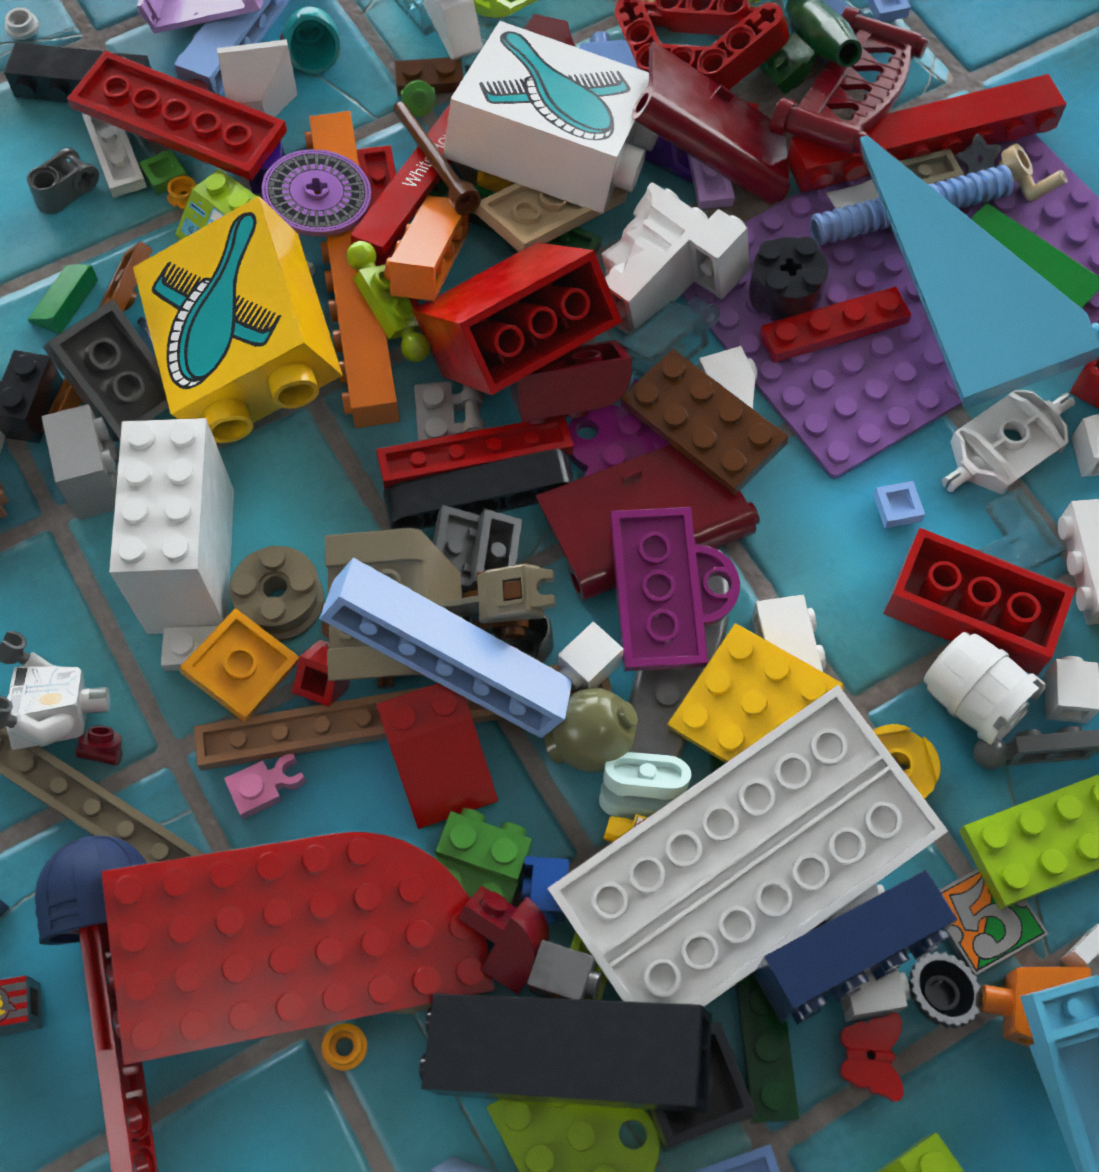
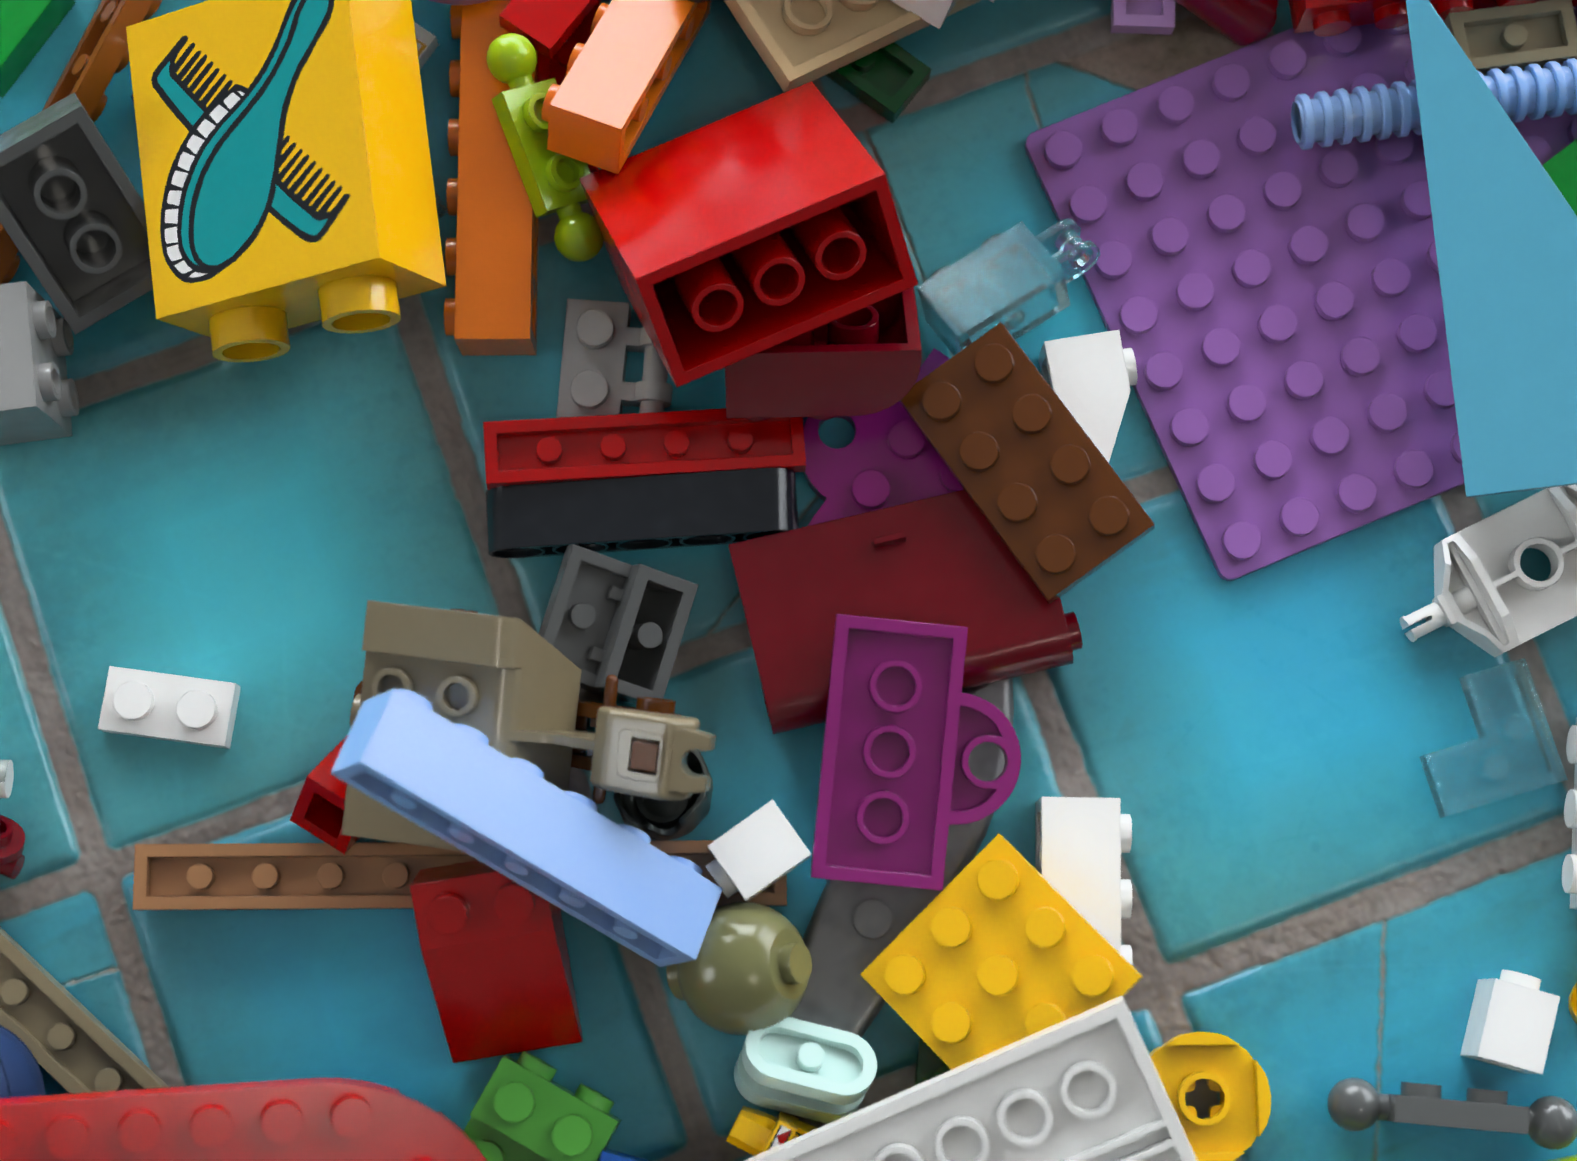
camera: 10 degrees right, 15 degrees up
(172, 524) = (135, 522): white brick -> none
(239, 665) = (216, 761): light orange plate -> none
(257, 787) = (222, 952): bright pink plate -> none
(275, 570) = (259, 615): dark tan wheel -> none
(668, 251) = (1021, 137): white brick -> none
(788, 277) = (1252, 192): black brick -> none
(834, 324) = (1290, 306): red plate -> none
(853, 194) = (1376, 59): white sticker -> none
(899, 504) = (1317, 654): light blue plate -> none
(962, 590) = (1401, 855): red brick -> none
(982, 686) = (1366, 1002): white piece -> none

